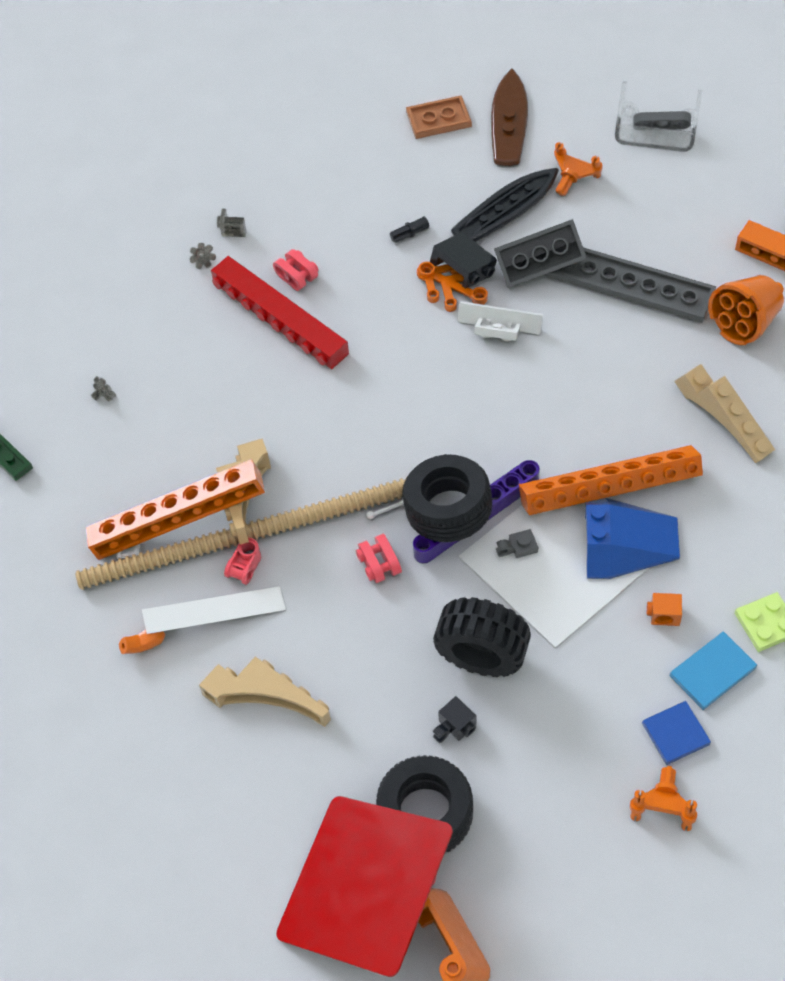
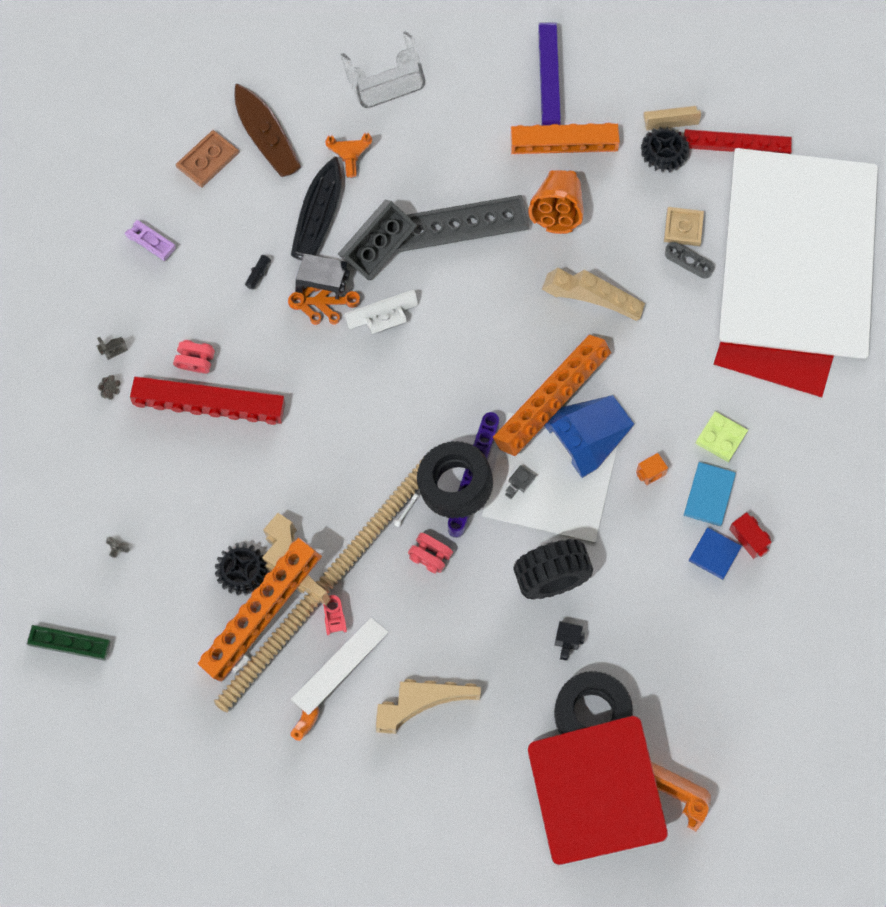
camera: 40 degrees left, 10 degrees up
(185, 461) = (234, 573): none -> black gear
(334, 157) = (150, 240): none -> lavender plate
(664, 799) = (741, 605): orange axle -> none
(665, 120) = (388, 71): dark grey beam -> none
(727, 736) = (751, 536): none -> red brick

